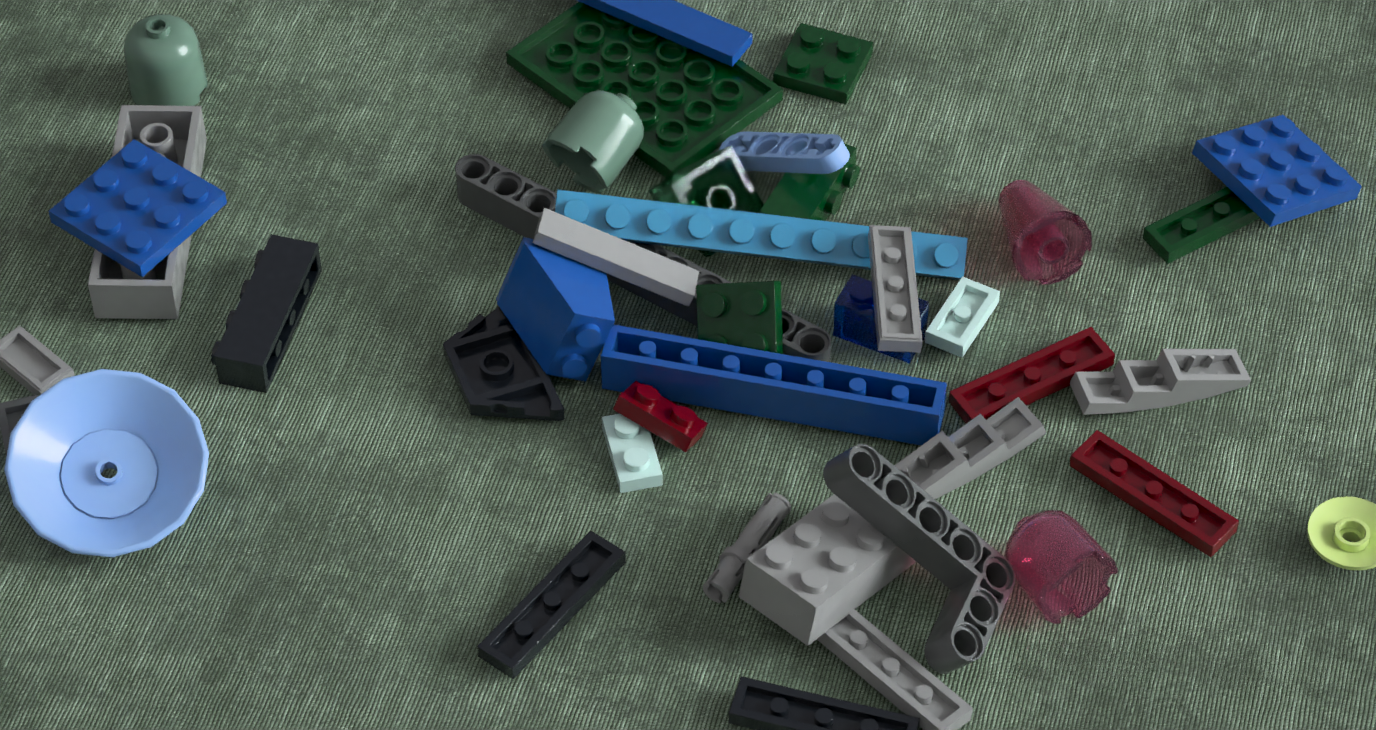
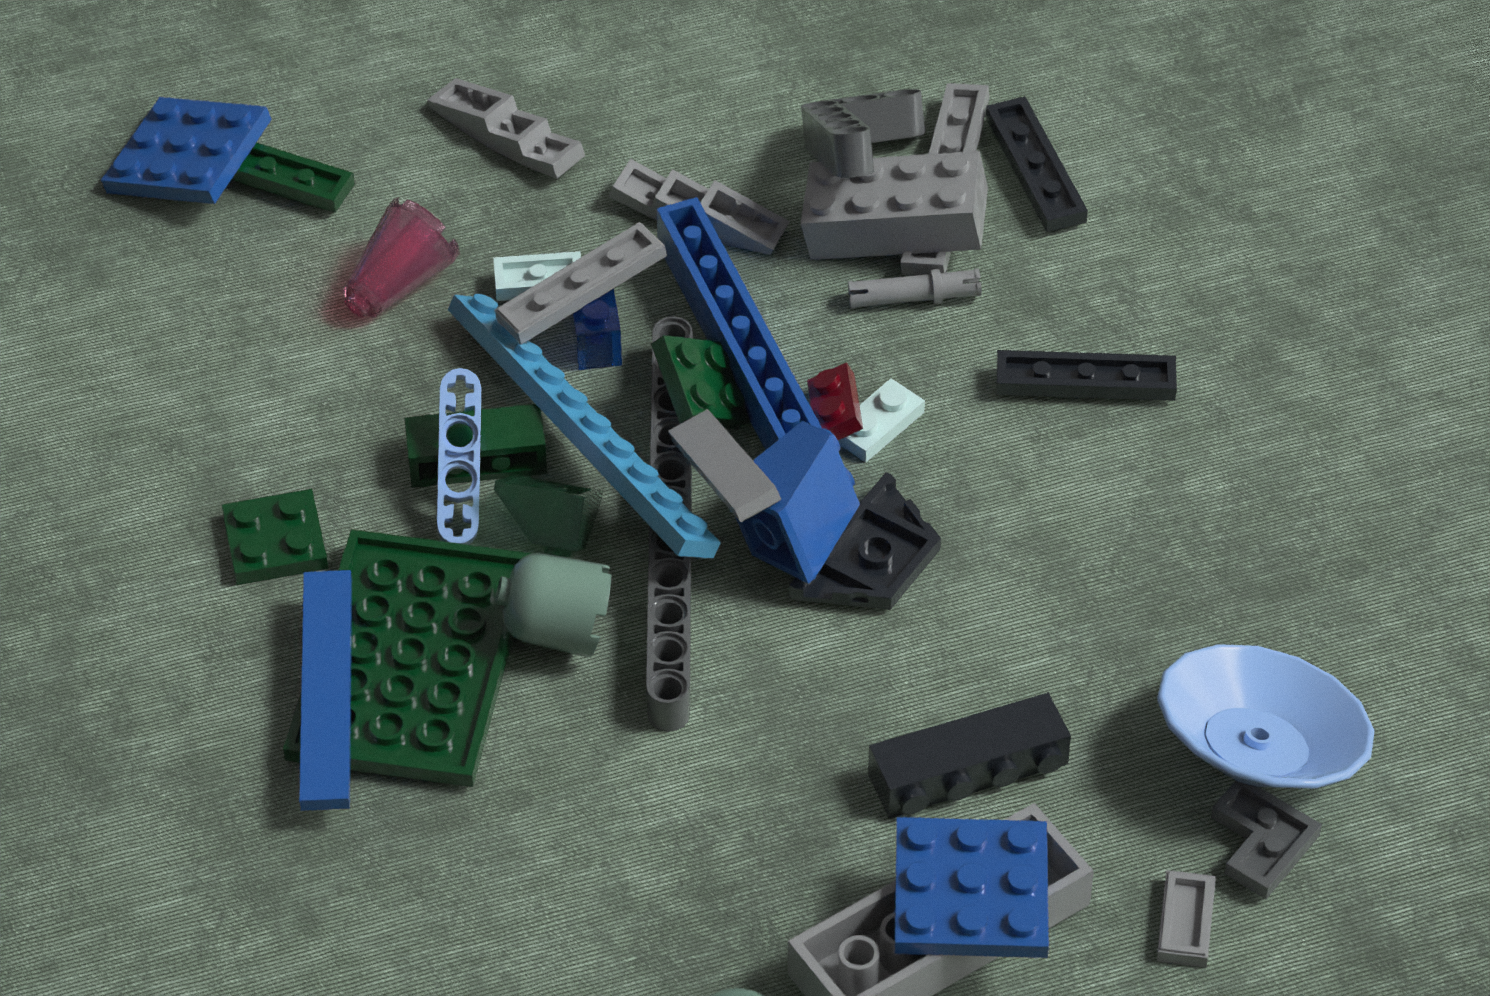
camera: 125 degrees left, 0 degrees up
(1033, 375) = (567, 199): dark red plate -> none
(1059, 564) = (775, 80): clear pink cylinder -> none
(1154, 493) = (634, 82): dark red plate -> none

